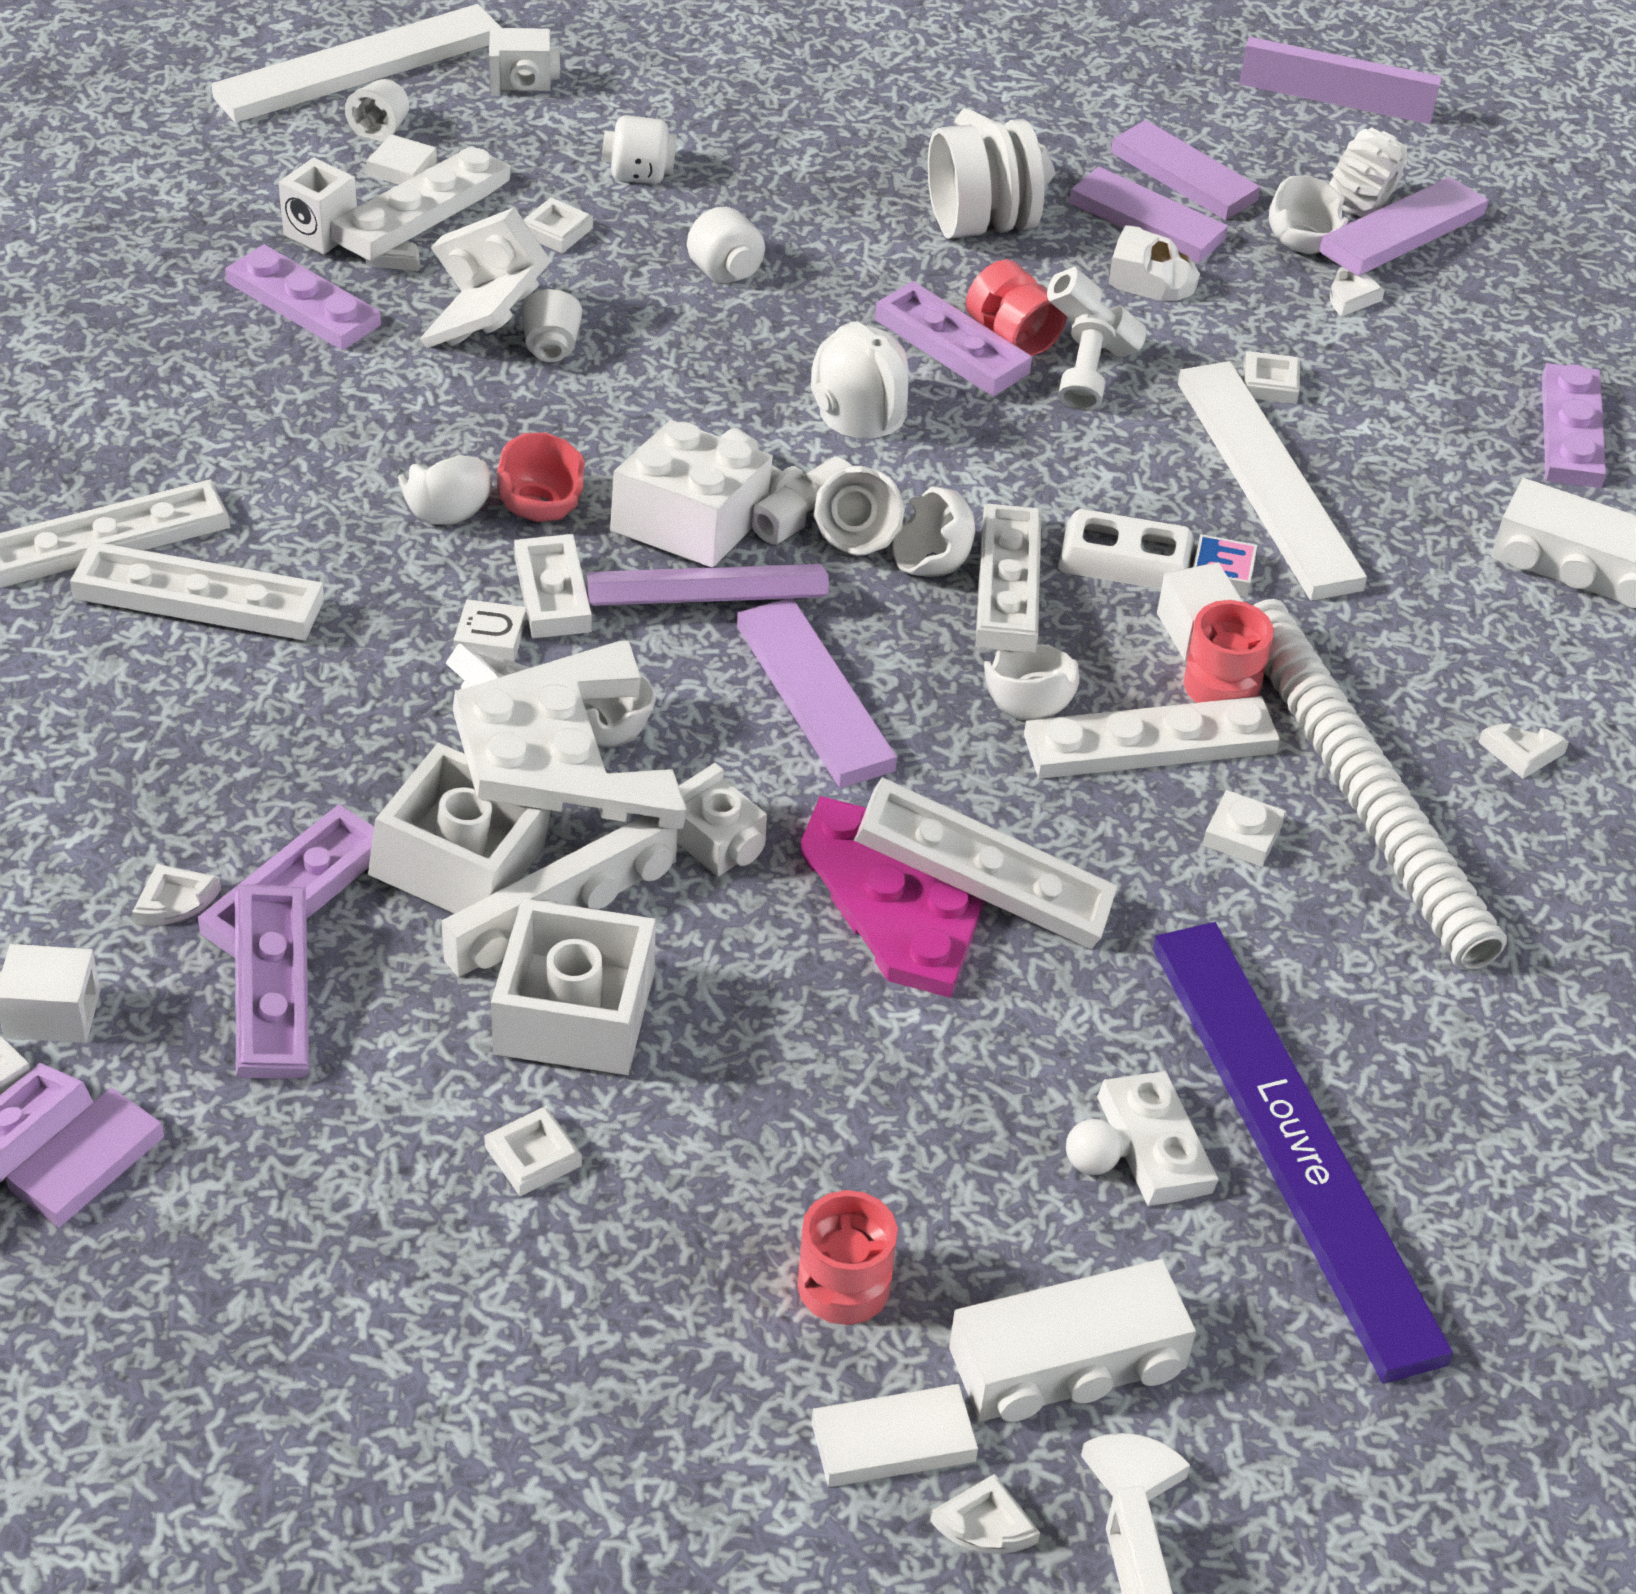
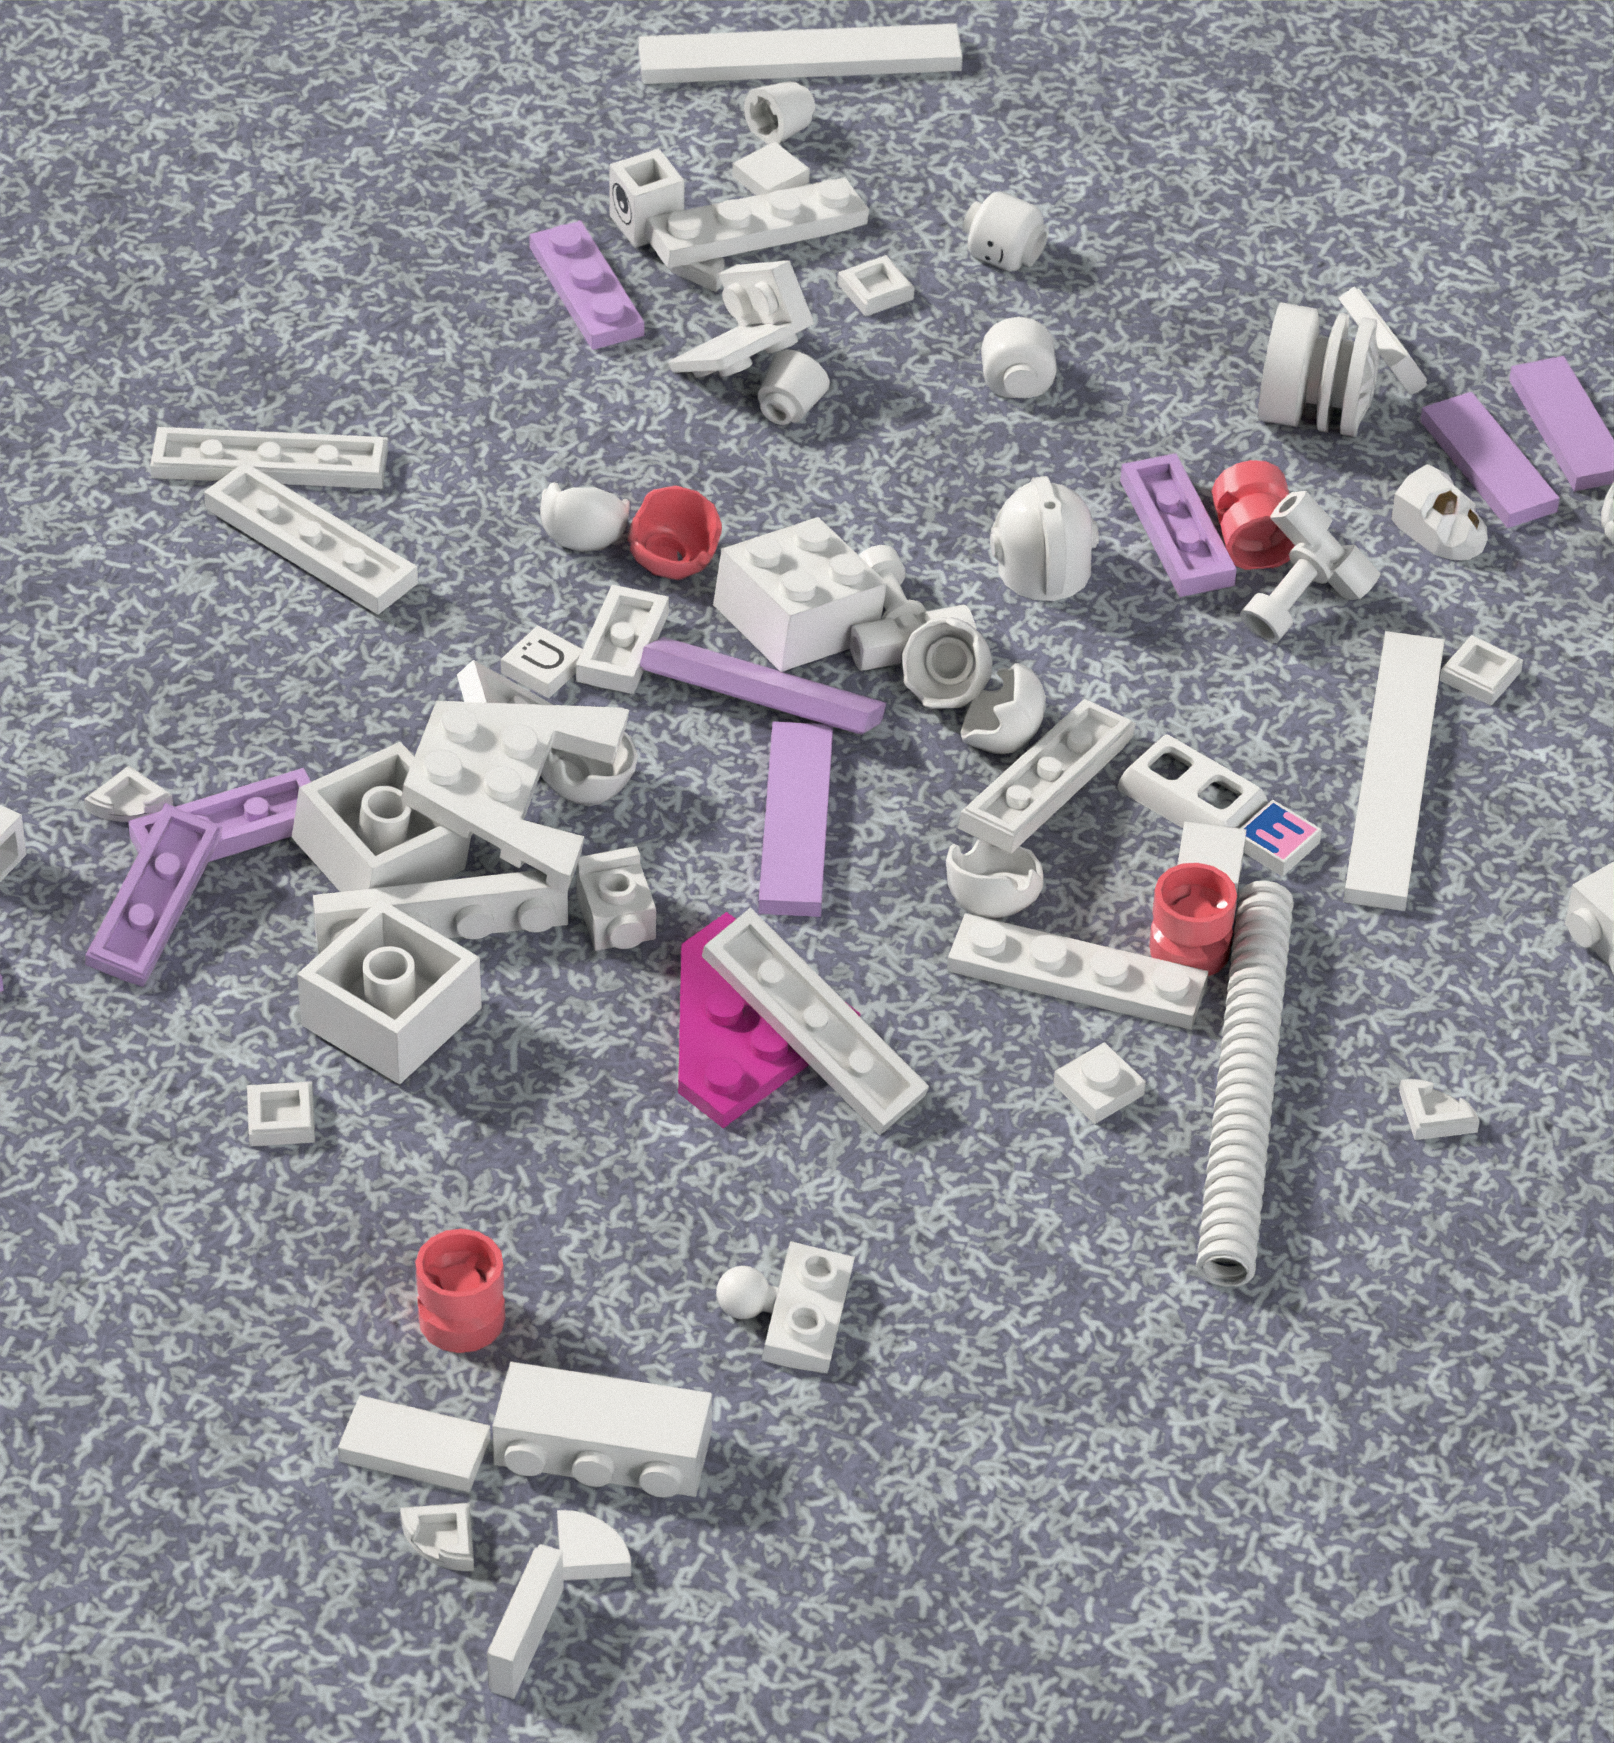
camera: 30 degrees right, 0 degrees up
(522, 60) = (952, 99): white brick -> none
(1303, 1156) = (927, 1367): dark purple tile -> none

